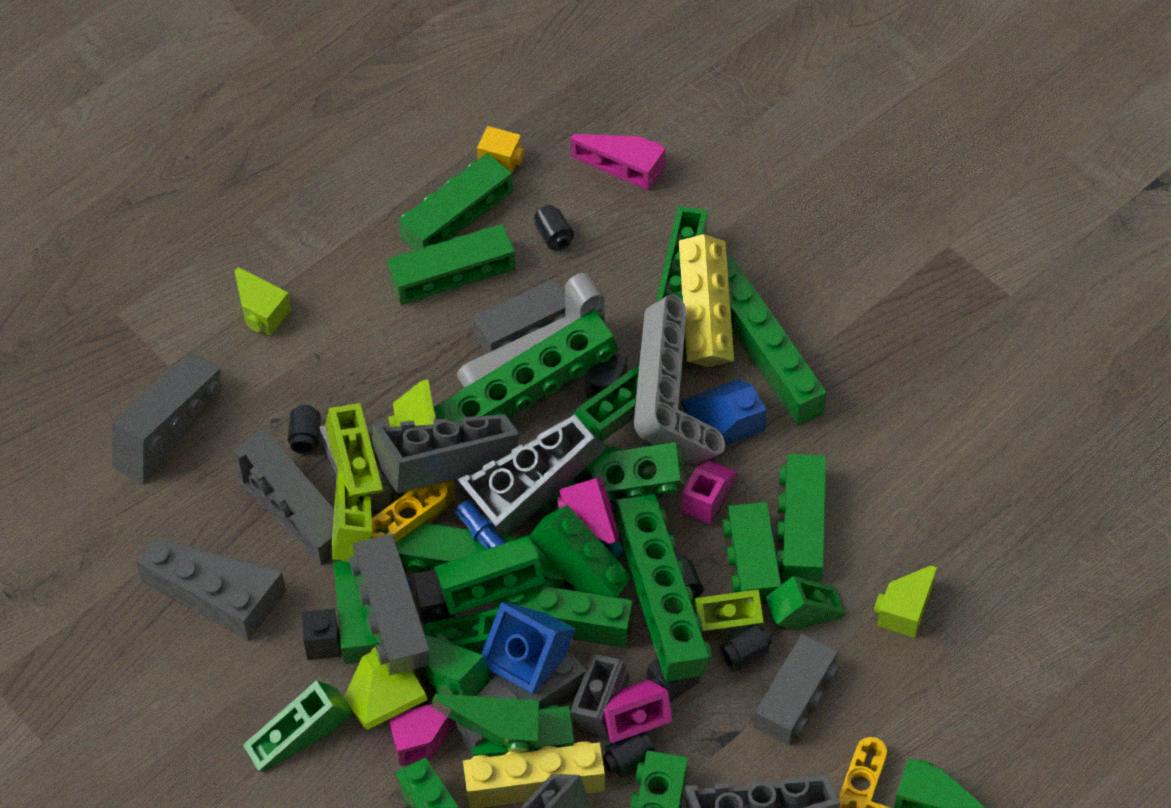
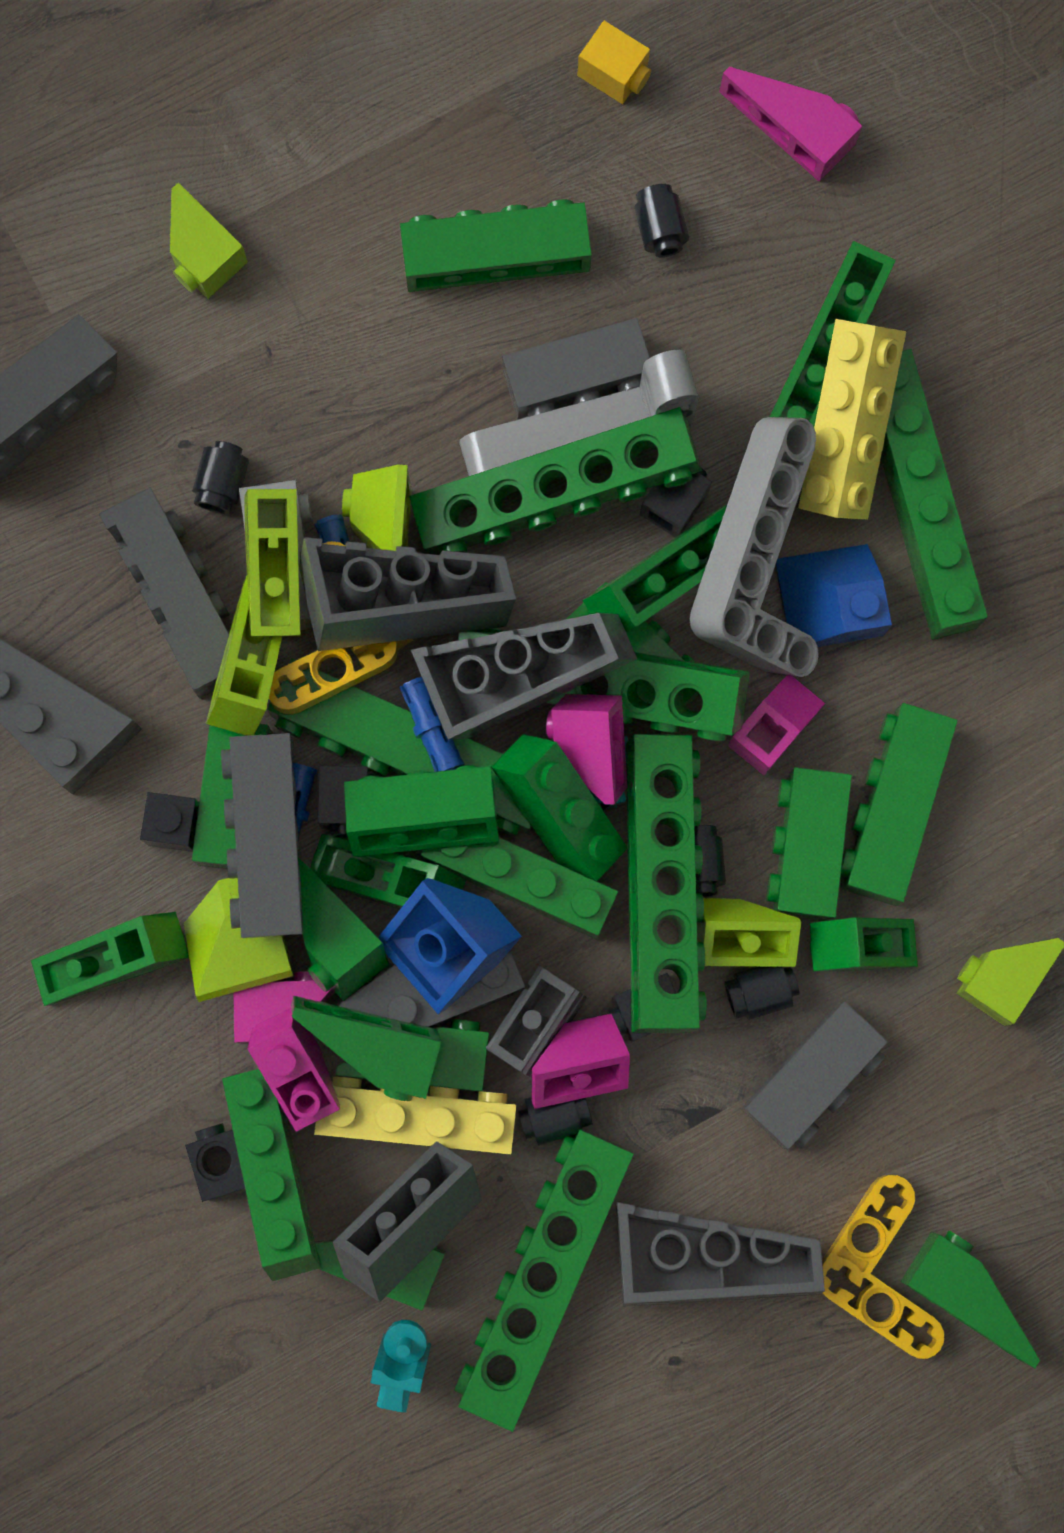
camera: 10 degrees right, 25 degrees up
(443, 750) = (293, 1069): none -> dark pink slope
(456, 203) = (526, 143): green brick -> none

